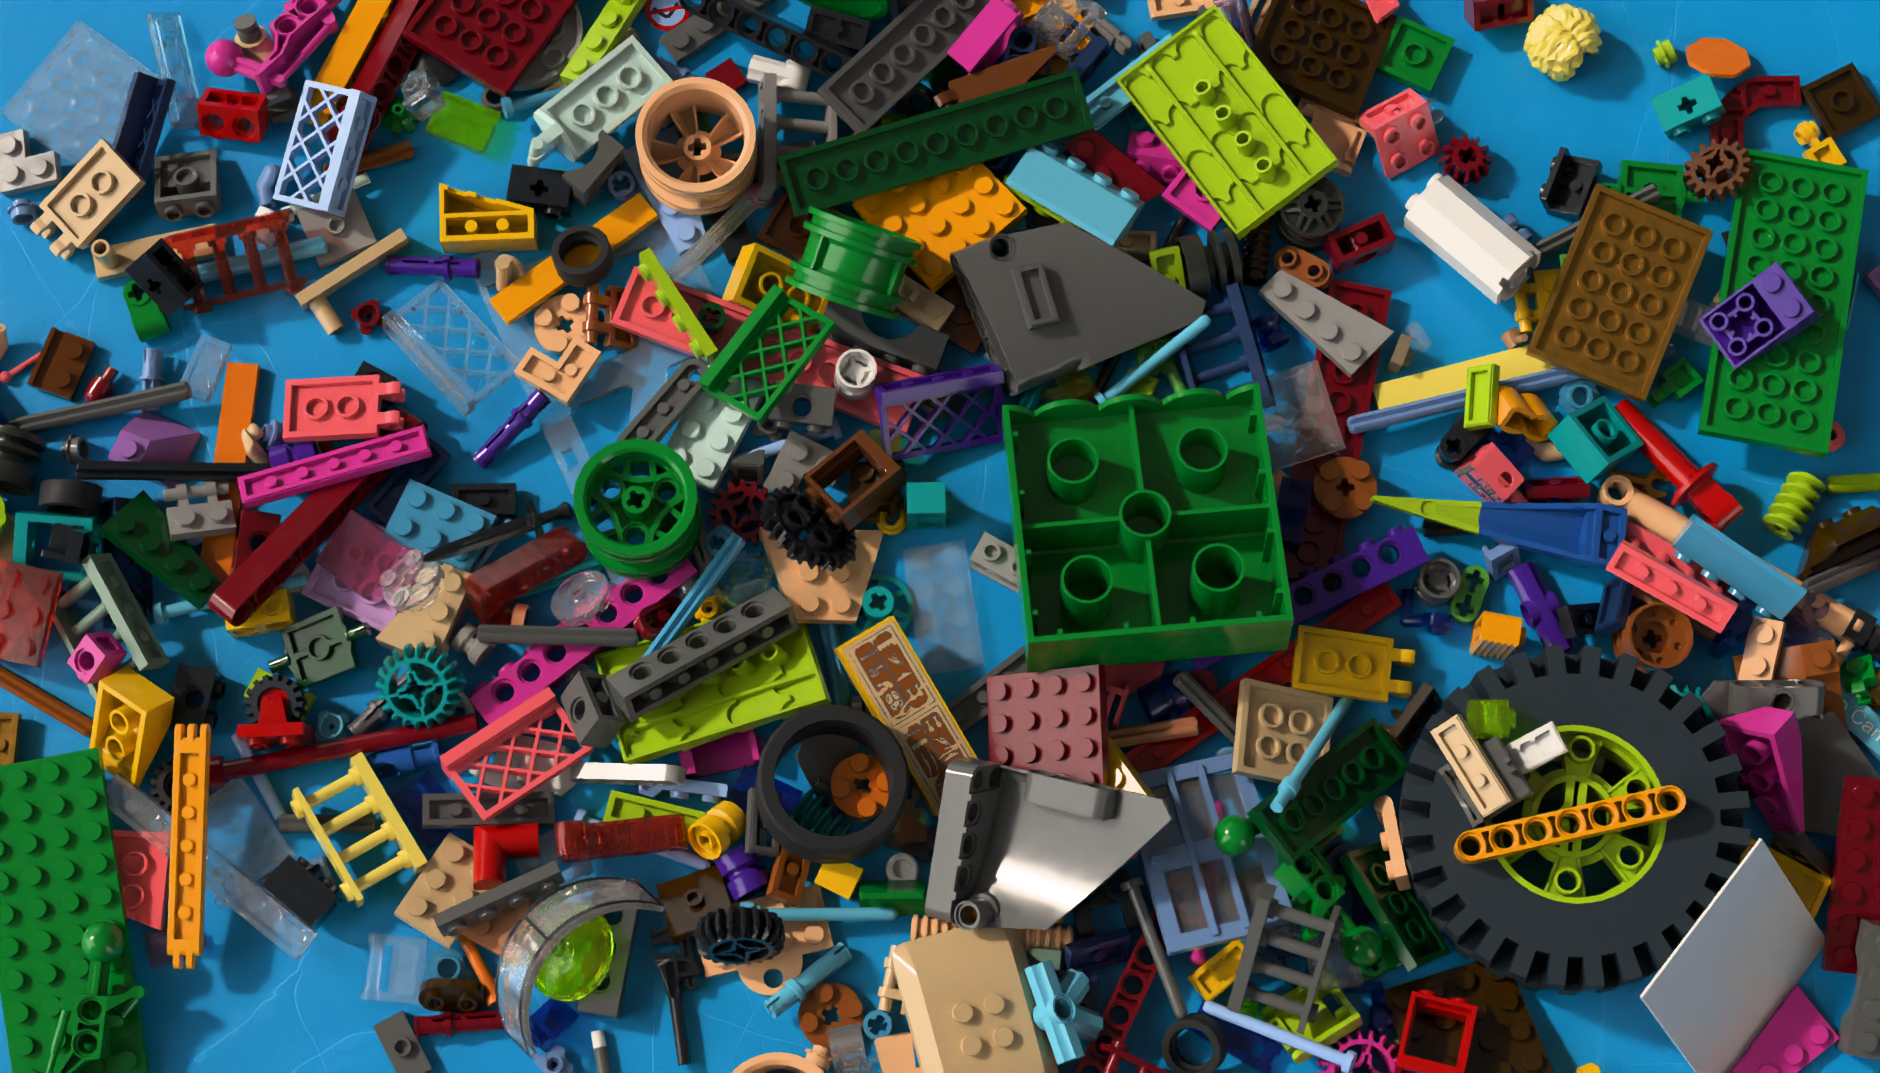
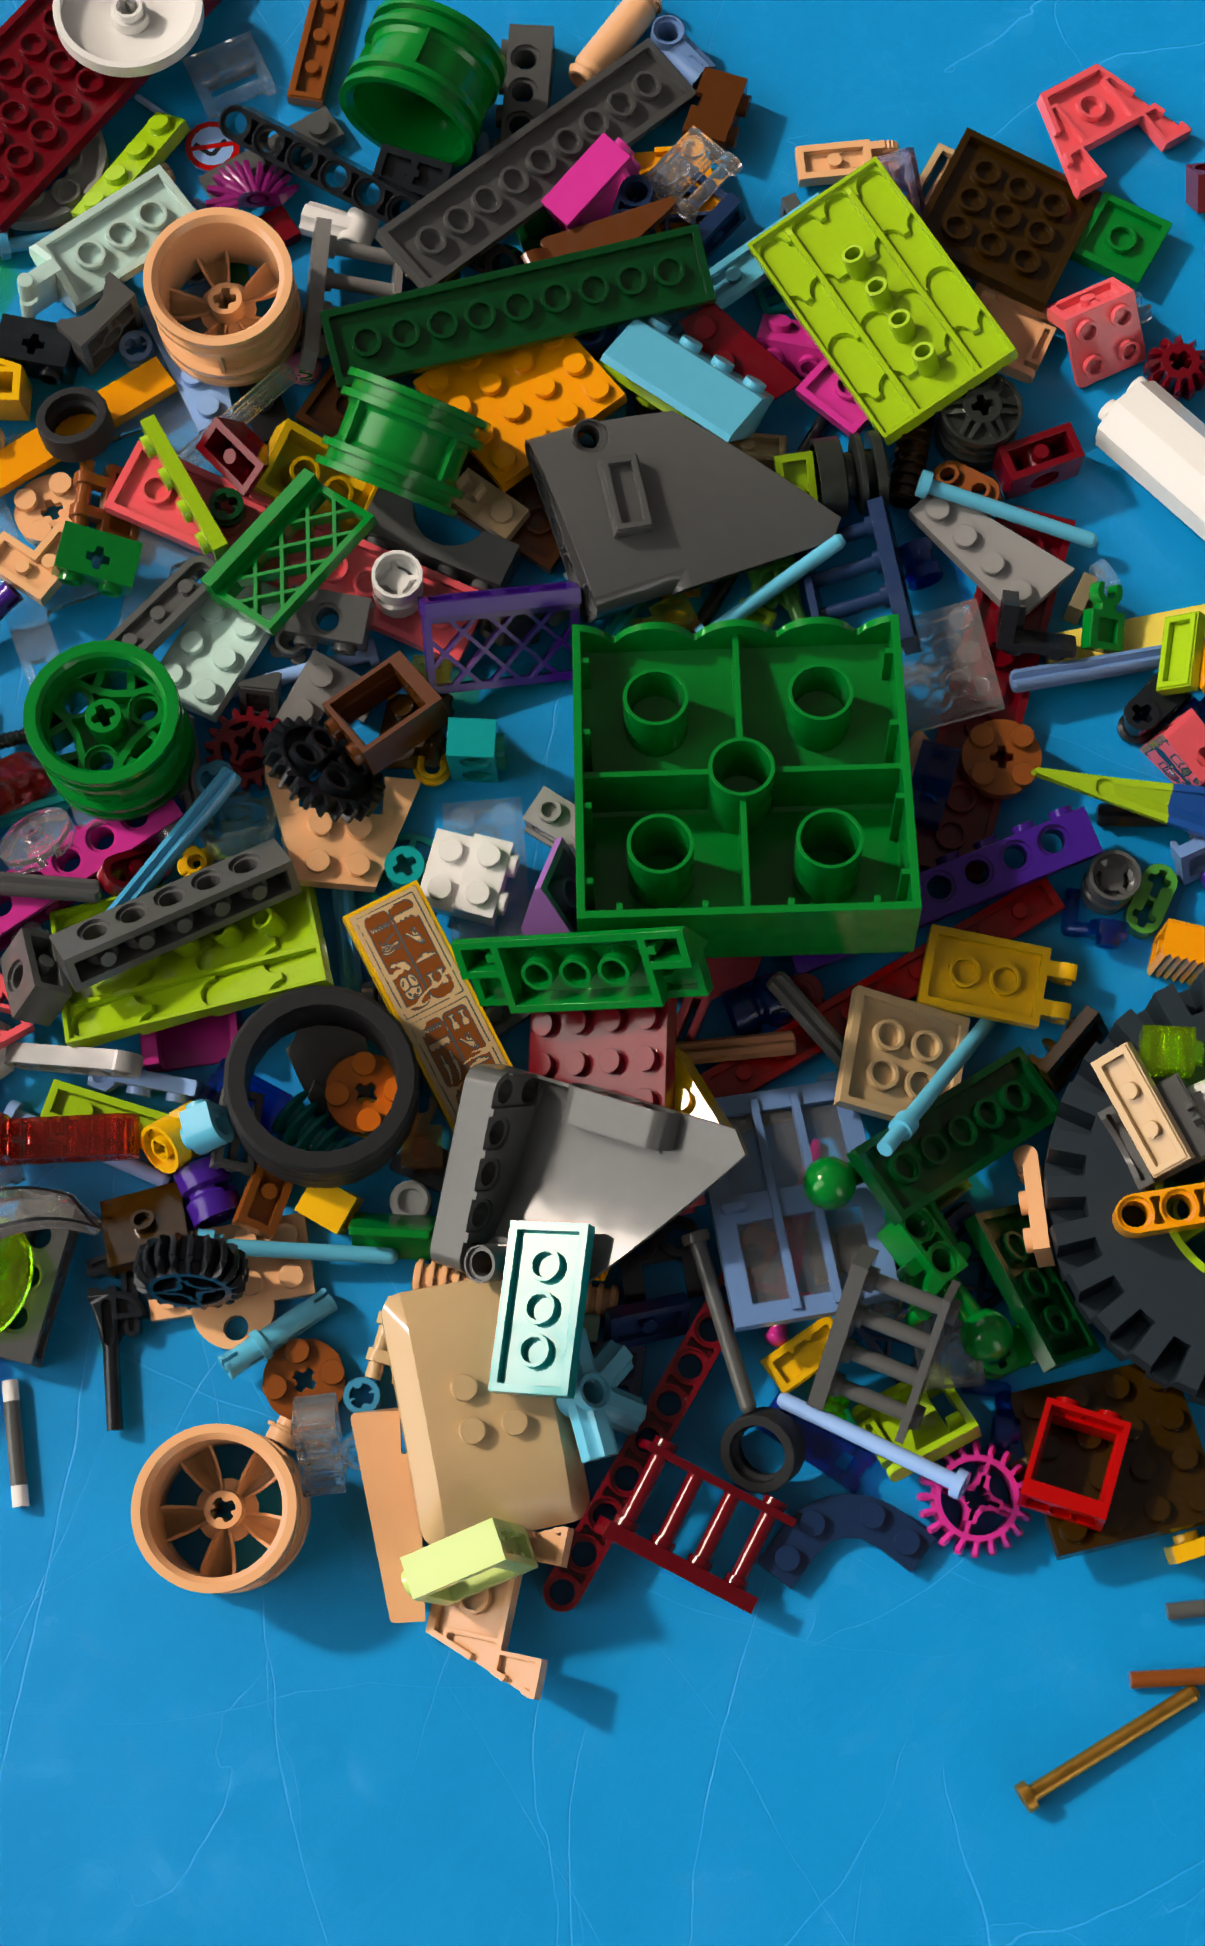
camera: 10 degrees right, 0 degrees up
(627, 362) = (117, 555): none -> green brick
(698, 47) = (242, 188): none -> magenta hair
(715, 274) = (235, 453): none -> dark red slope
(741, 821) = (205, 1126): none -> medium azure plate
(930, 607) = (469, 876): none -> white plate
(1001, 631) = (554, 896): none -> slope
(1019, 947) = (542, 1309): none -> plate
(1034, 681) = (585, 969): none -> green slope
(1112, 34) = (761, 210): light grey axle -> none
(1272, 271) = (1002, 510): none -> medium azure bar
(1353, 392) = (1018, 641): none -> black bracket
(1418, 376) = (1102, 624): none -> green plate

